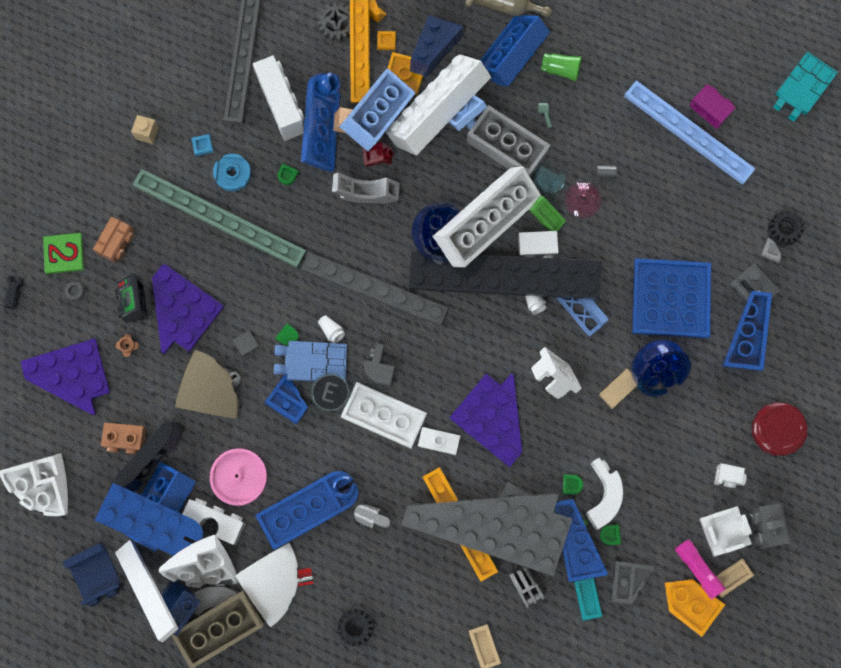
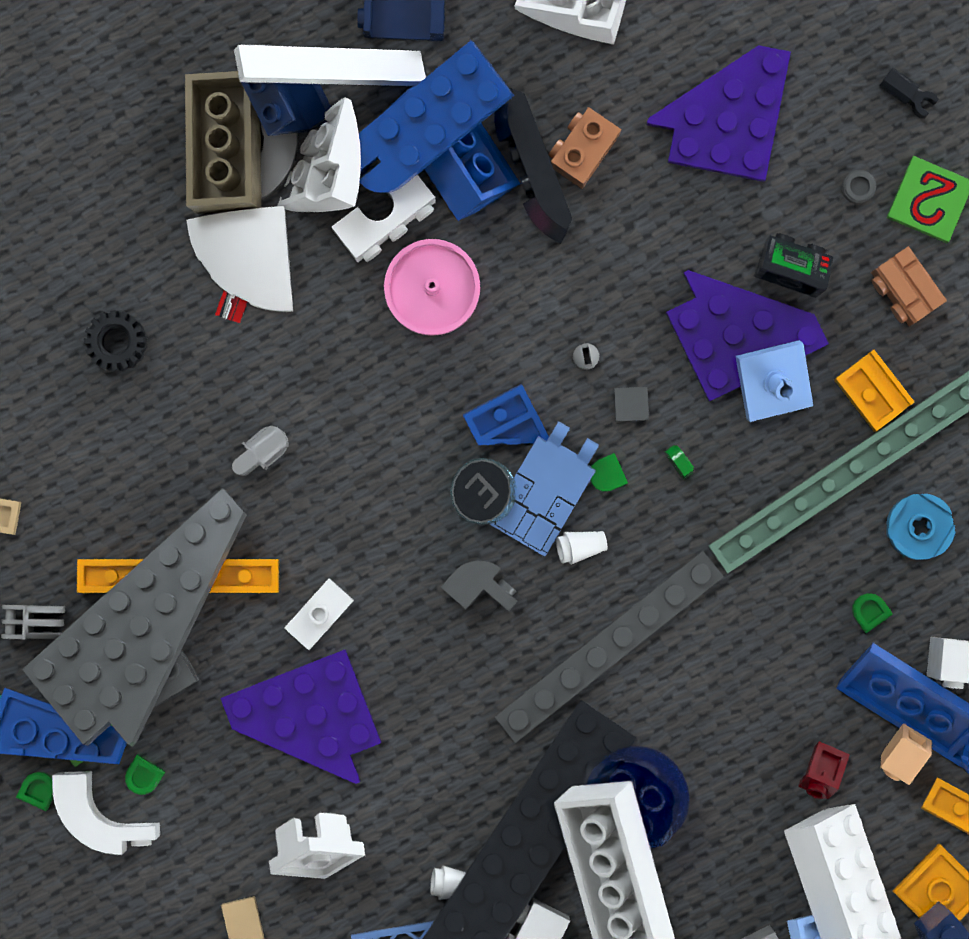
camera: 115 degrees right, 10 degrees up
(121, 345) = (733, 216): nougat plate -> none
(175, 229) = (874, 390): none -> light orange plate
(196, 278) = (774, 381): none -> light blue tile
(207, 388) = (590, 310): dark tan brick -> none
(262, 303) = (679, 461): none -> green tile
(307, 508) = (327, 364): blue plate -> none
(363, 191) = (773, 719): light grey arch -> none
(377, 109) = (895, 812): light blue brick -> none
(384, 415) = (404, 553): white tile -> none

